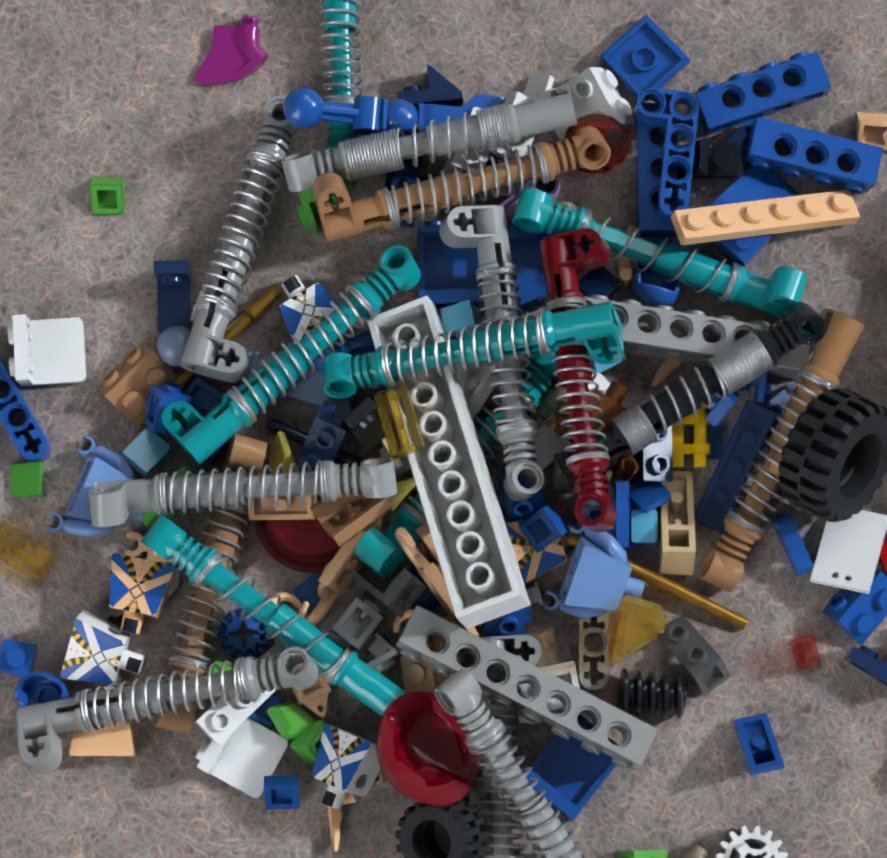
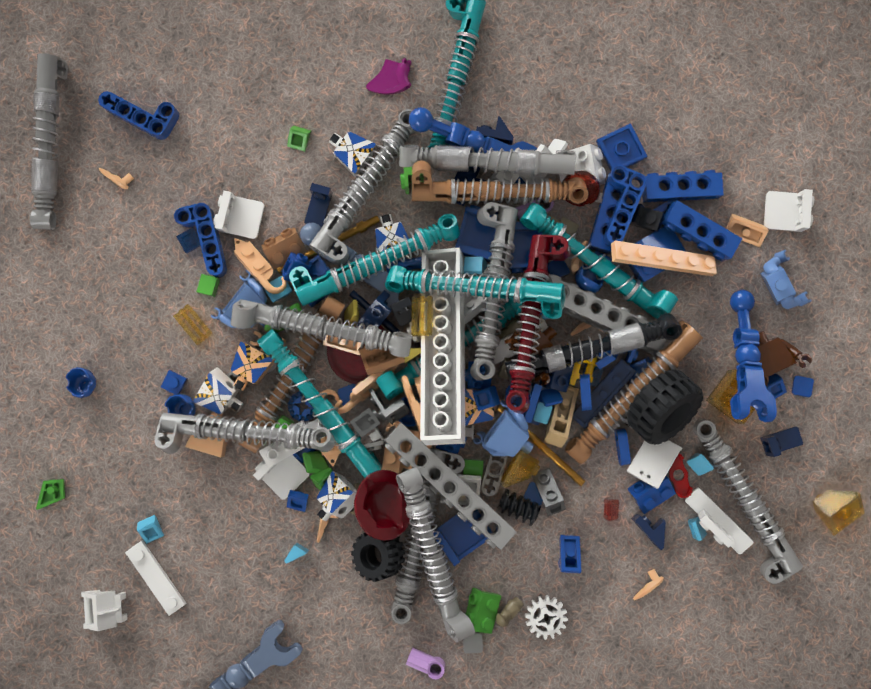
camera: 15 degrees right, 5 degrees up
(100, 423) = (257, 265): none -> light nougat plate
(204, 191) = (352, 151): none -> torso
(557, 650) = (473, 467): none -> bright green slope
(668, 664) = (533, 493): none -> blue piece
(703, 470) = (585, 392): none -> blue beam

